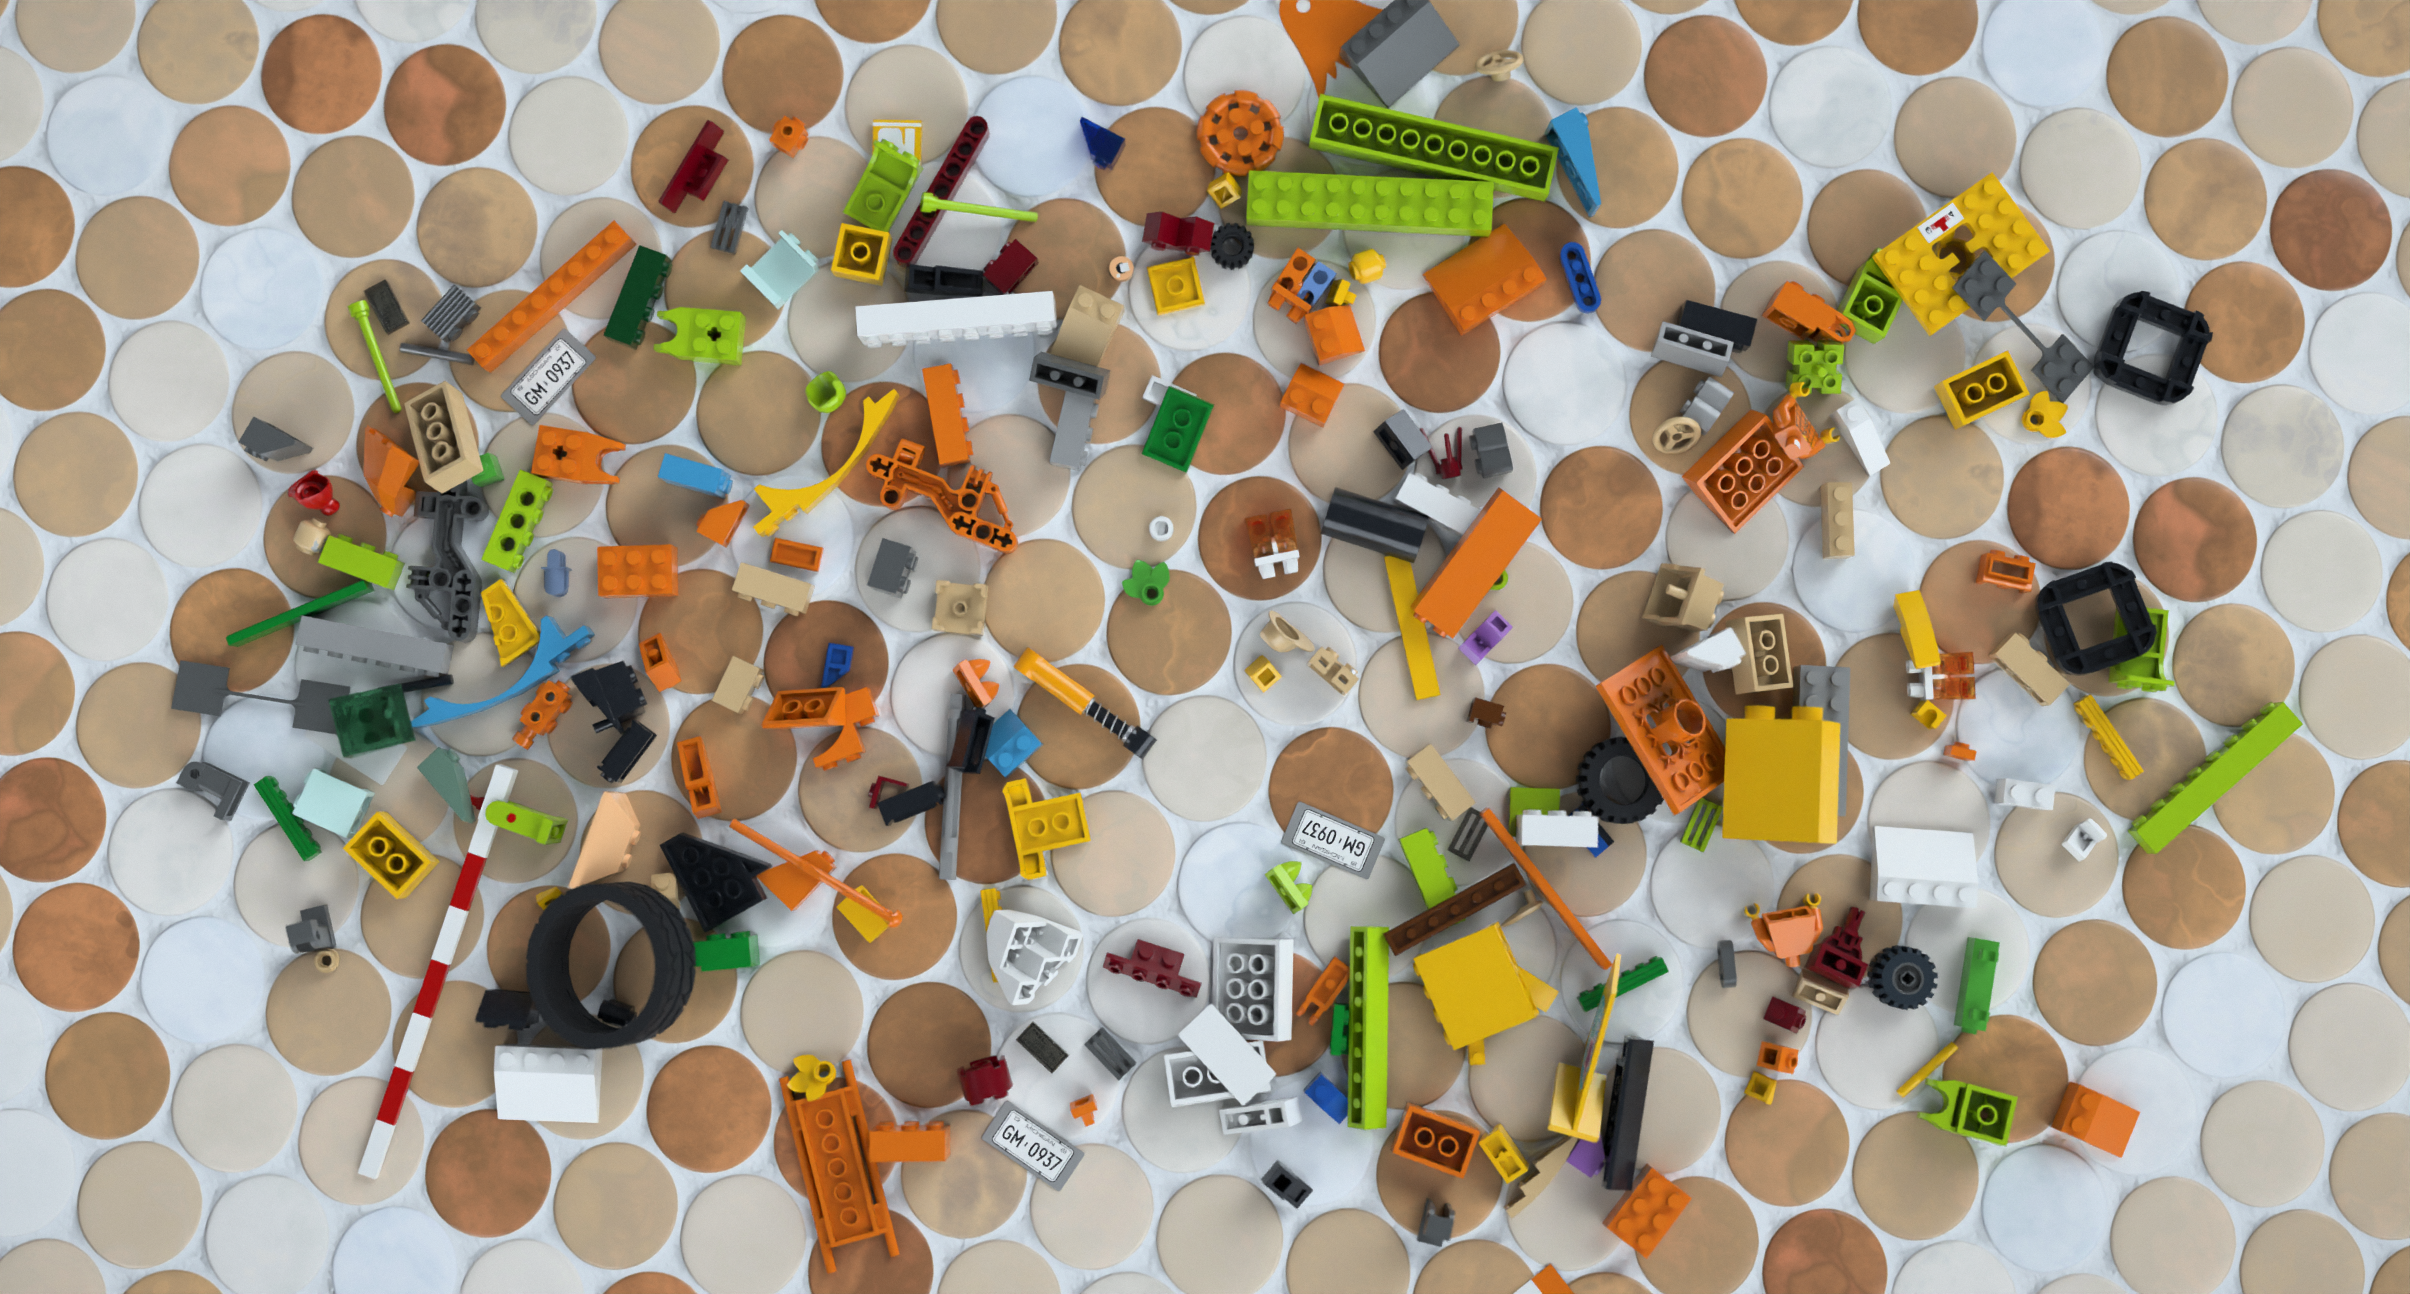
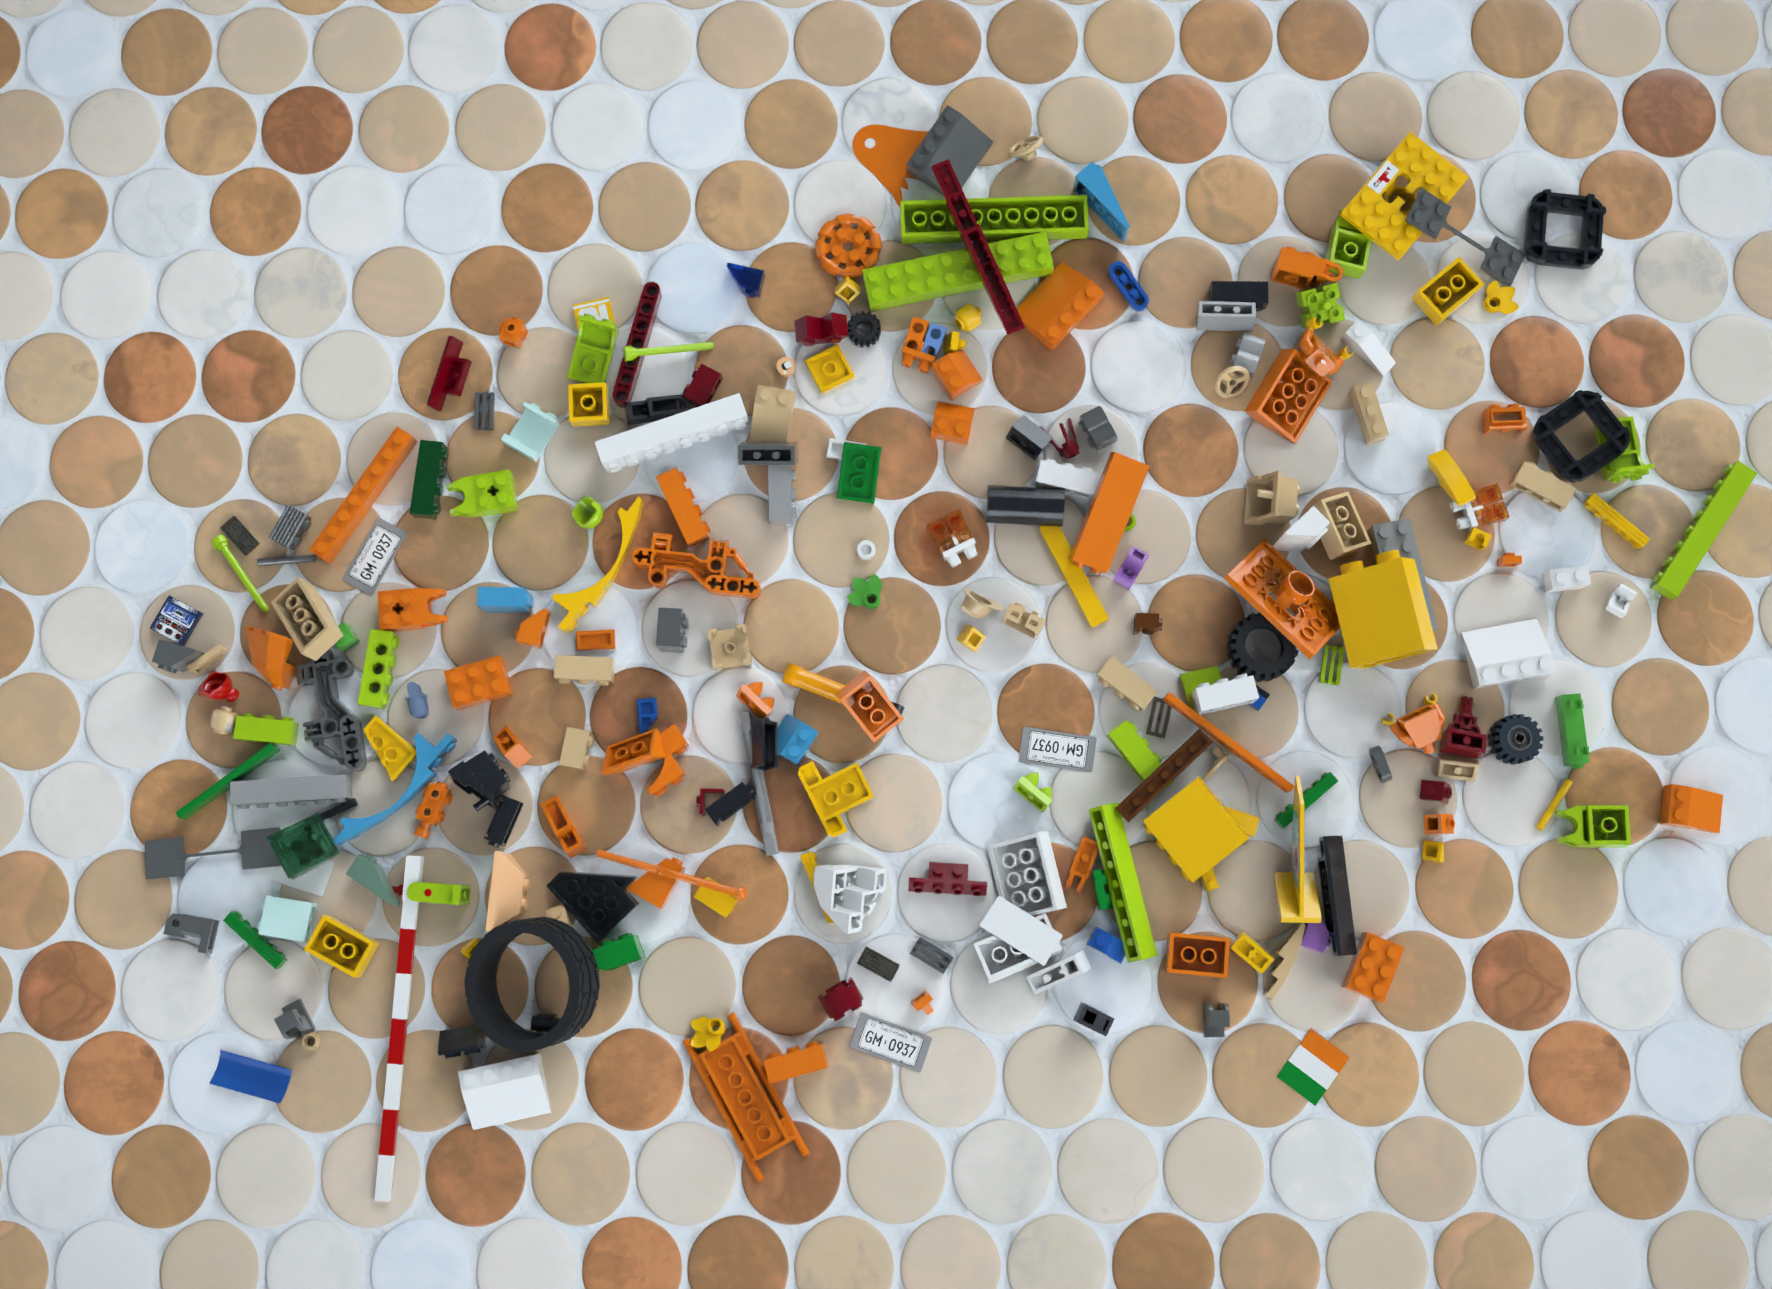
camera: 10 degrees left, 5 degrees down
(244, 984) = (251, 1077): none -> blue sticker
(282, 394) = (176, 620): none -> tile
(310, 454) = (207, 659): none -> tan tile
(1112, 728) = (869, 706): none -> orange slope
(1401, 181) = (977, 247): none -> dark red slope

